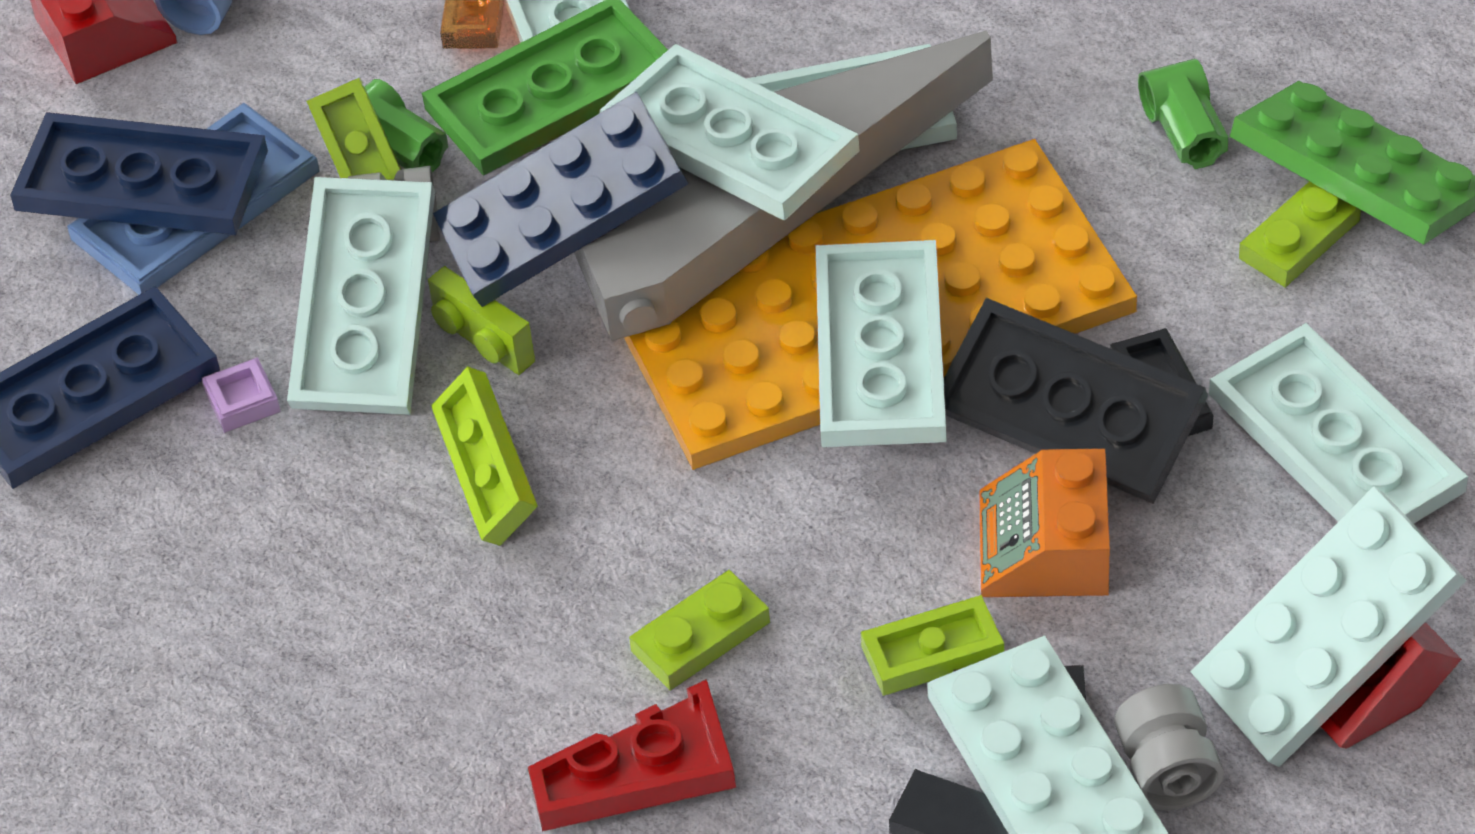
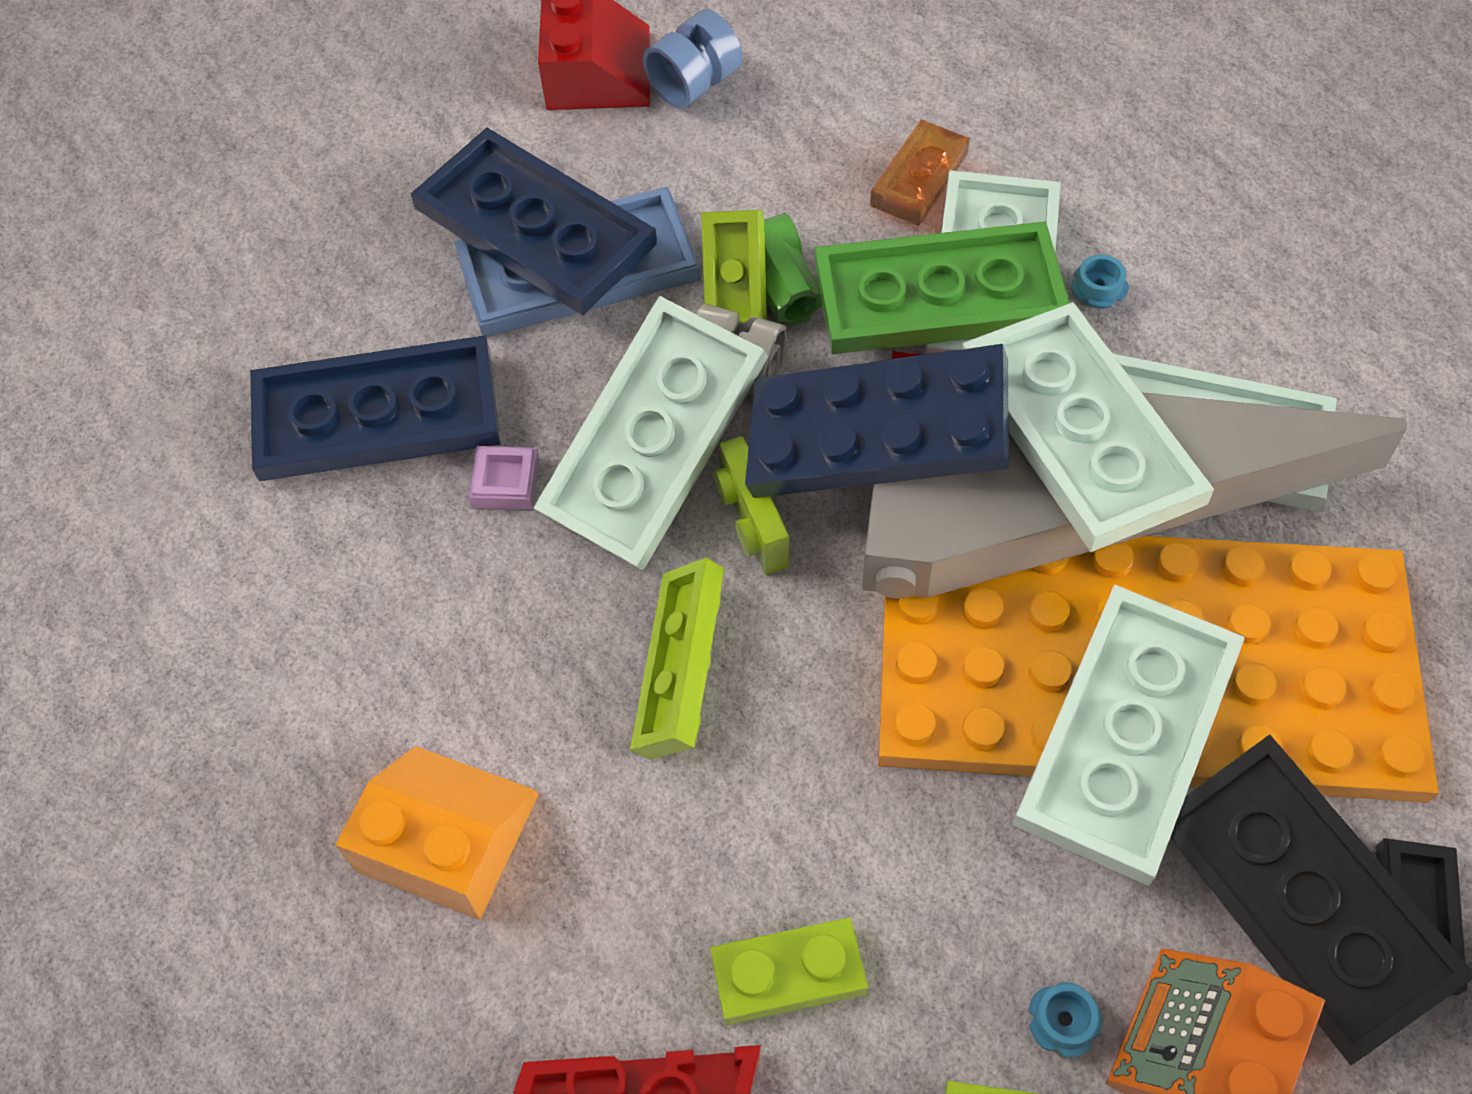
camera: 25 degrees right, 10 degrees up
(356, 664) = (437, 829): none -> light orange slope
(687, 28) = (1100, 281): none -> dark azure plate
(924, 550) = (1084, 1014): none -> dark azure plate

